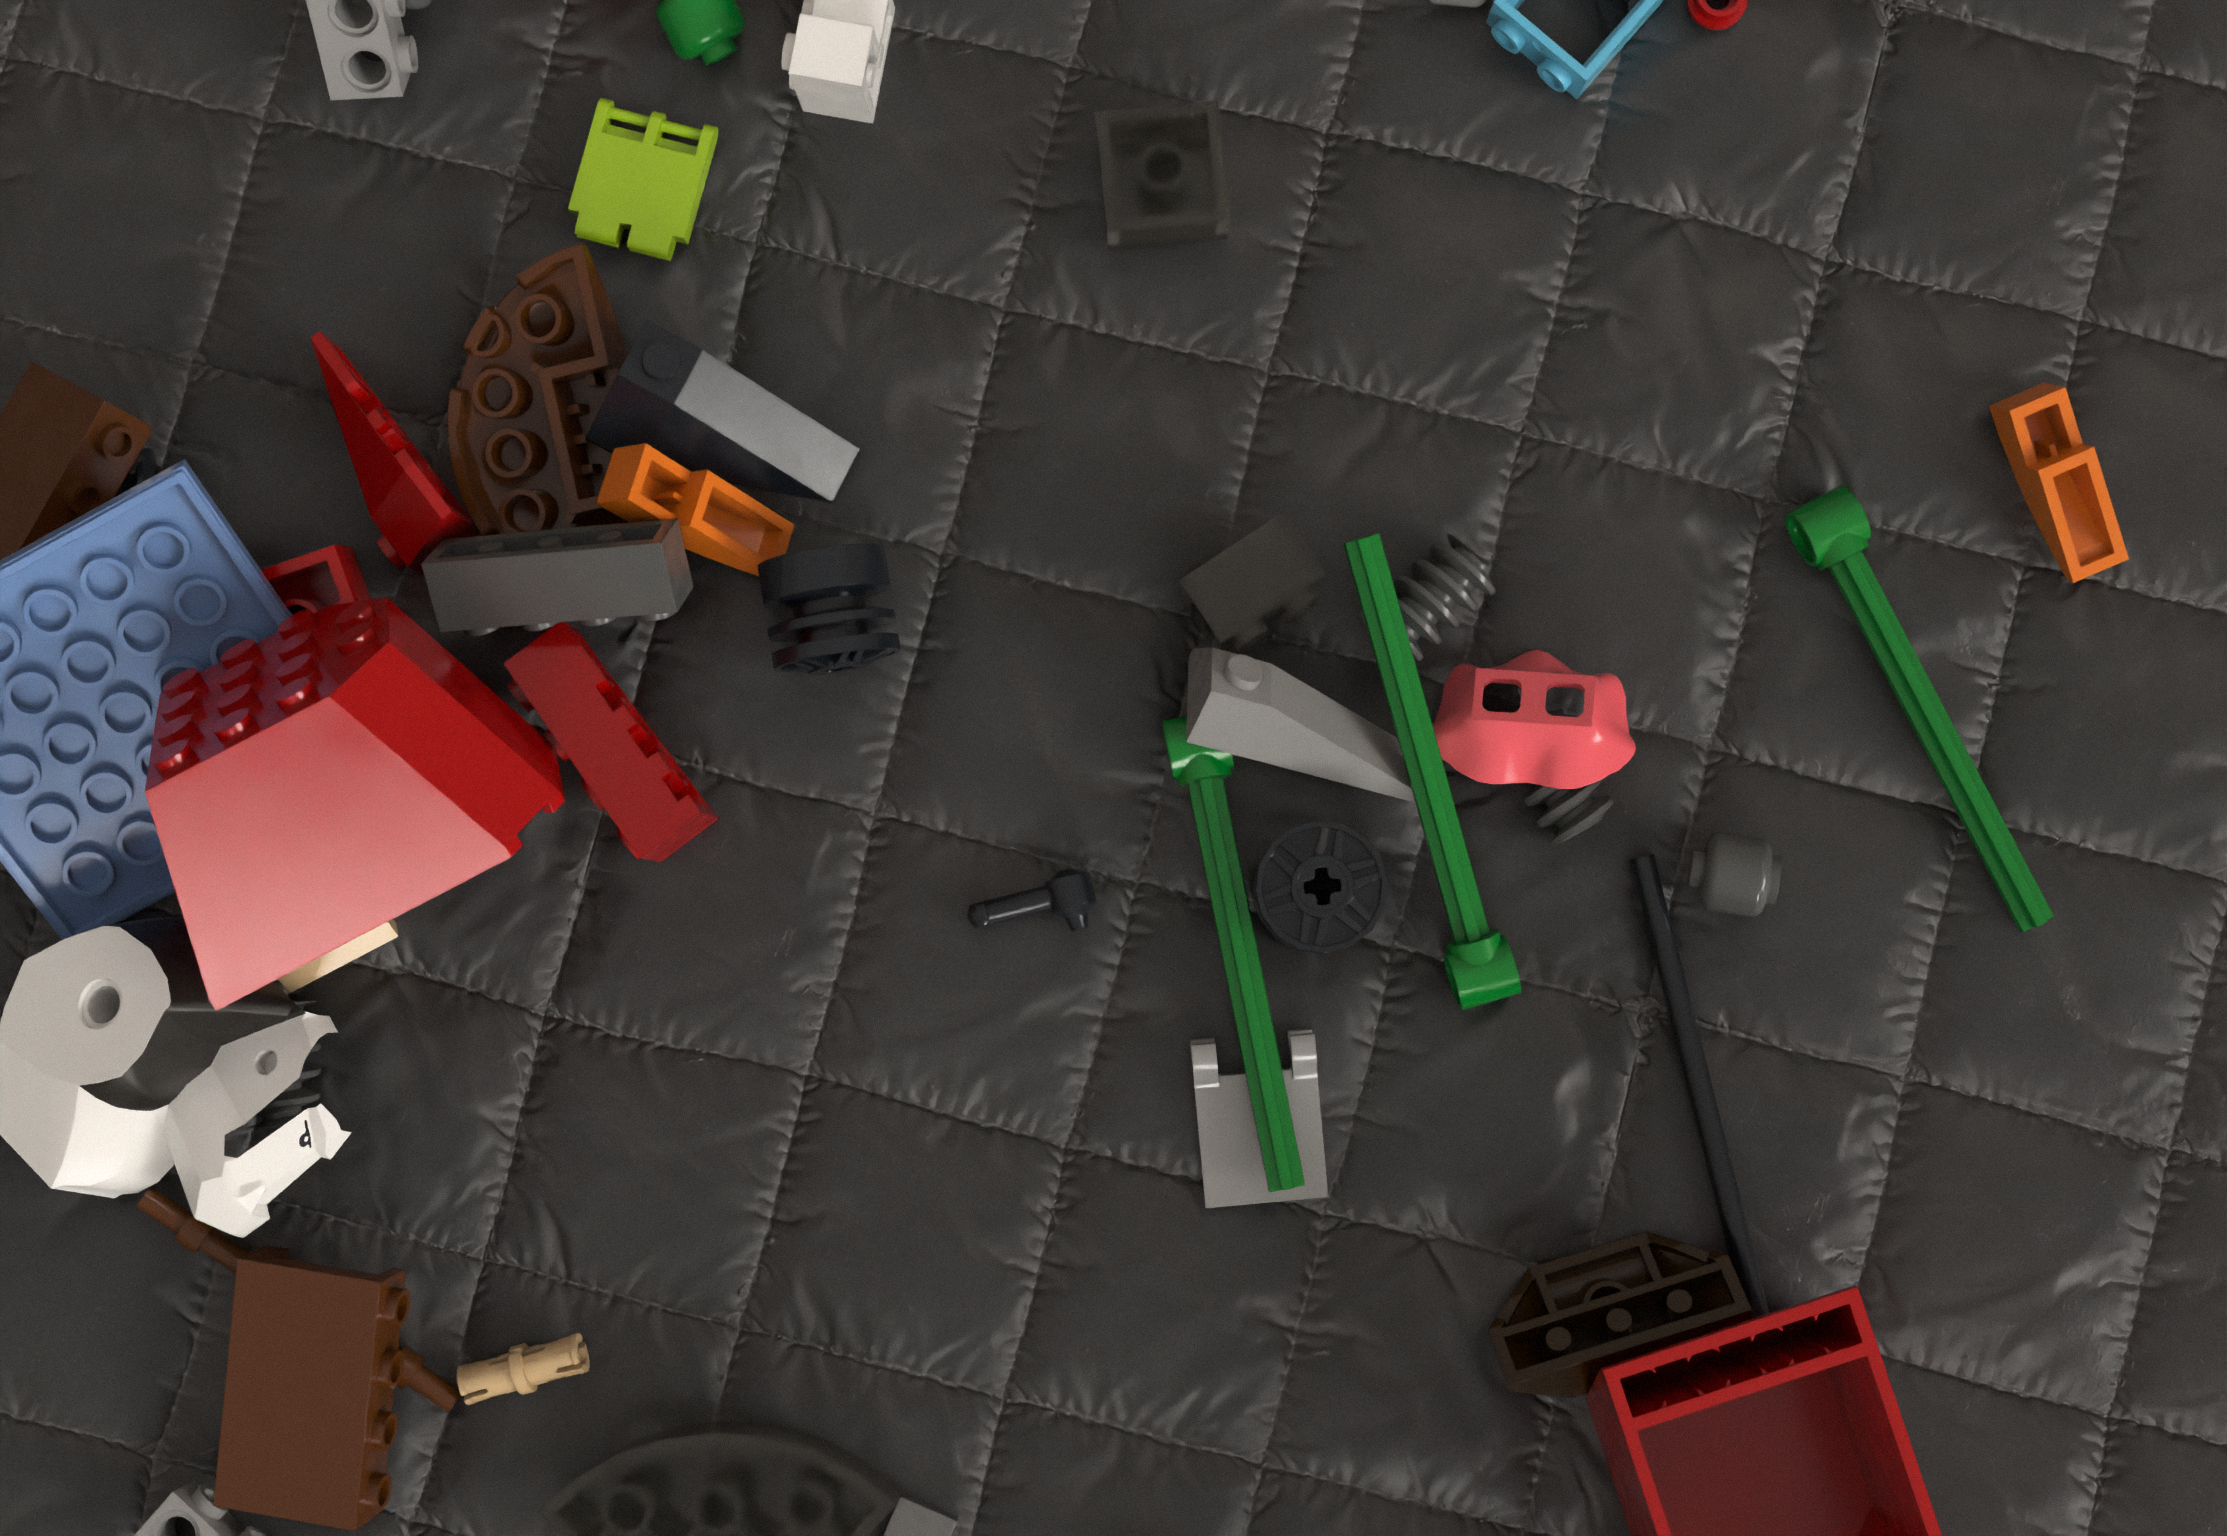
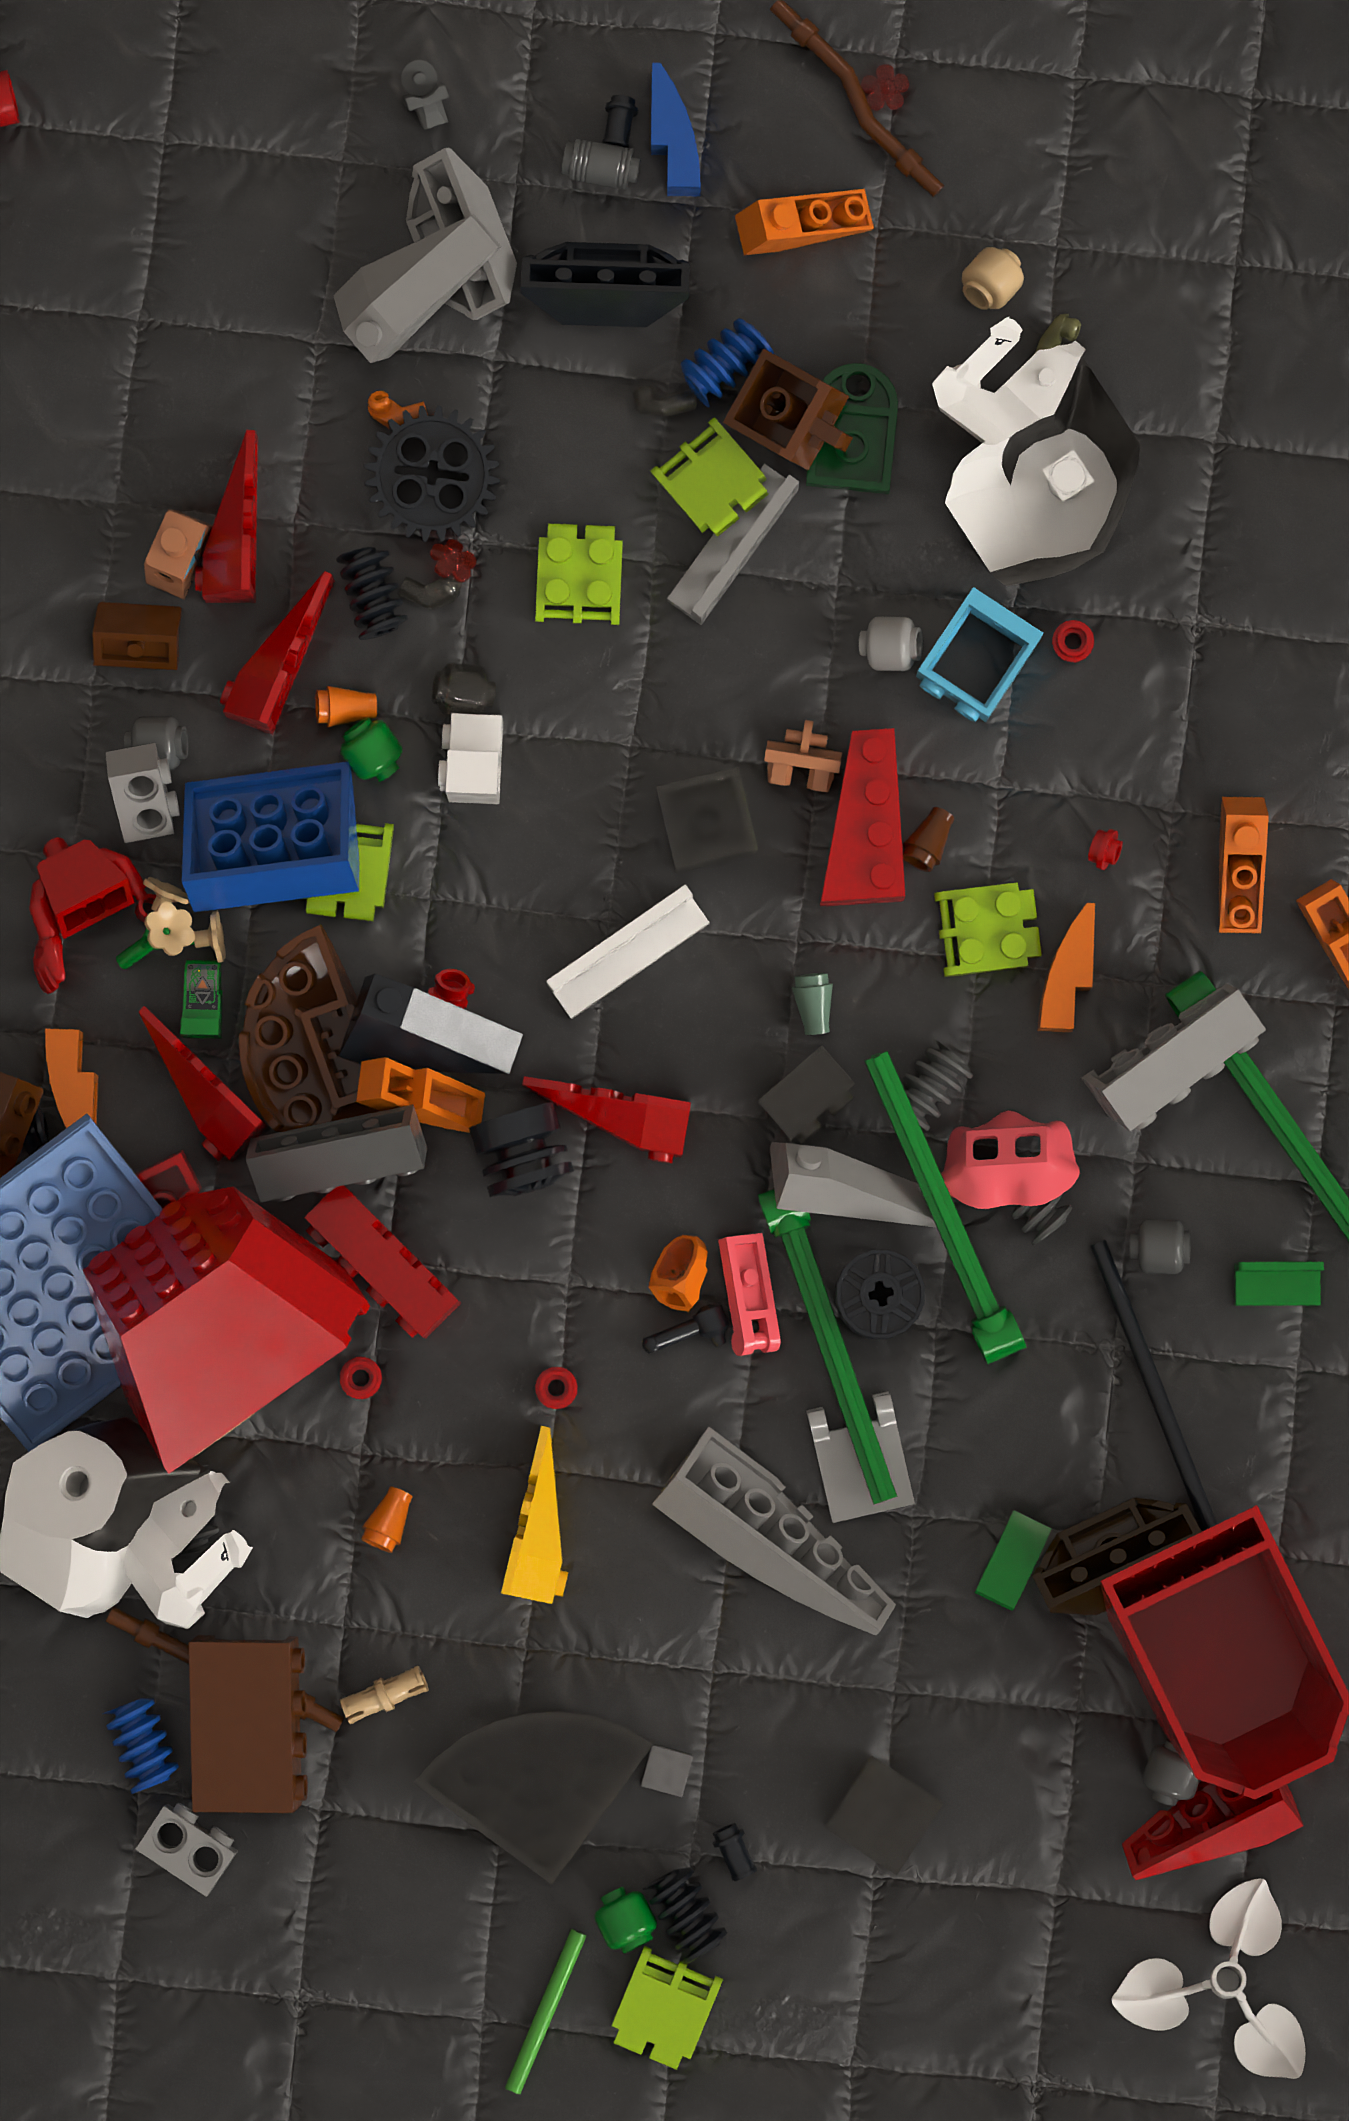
camera: 15 degrees left, 0 degrees up
(161, 1393) = (142, 1744): none -> blue piece
(203, 424) = (73, 1090): none -> orange slope
(248, 156) = (75, 891): none -> red torso
(364, 226) = (171, 928): none -> tan plant
(410, 339) = (202, 1000): none -> leg
(535, 120) = (270, 837): none -> blue slope
(538, 906) = (348, 1371): none -> red plate
(565, 1116) = (387, 1521): none -> orange cone
(769, 366) = (452, 987): none -> red plate
(770, 1198) = (536, 1549): none -> yellow wedge
(815, 958) = (548, 1376): none -> red plate
(1012, 593) = (640, 1120): none -> red wedge
(1023, 349) = (627, 952): none -> white fence
(1034, 817) = (680, 1273): none -> orange rock
(1093, 1199) = (752, 1524): none -> light grey wedge
(1131, 861) = (749, 1294): none -> coral plate
(1280, 456) = (813, 1001): none -> sand green cone
(1283, 106) = (821, 762): none -> nougat hips
(1388, 233) = (867, 837): none -> red wedge
(1460, 1300) = (1013, 1560): none -> green slope
(1472, 253) = (927, 842): none -> reddish brown cone
(1544, 388) = (989, 928): none -> lime plate
(1651, 466) = (1068, 972): none -> orange slope
(1726, 295) = (1105, 848): none -> red plate
(1797, 603) = (1175, 1058): none -> light grey wedge
(1895, 949) = (1277, 1283): none -> green panel
(1921, 342) = (1242, 864): none -> orange slope

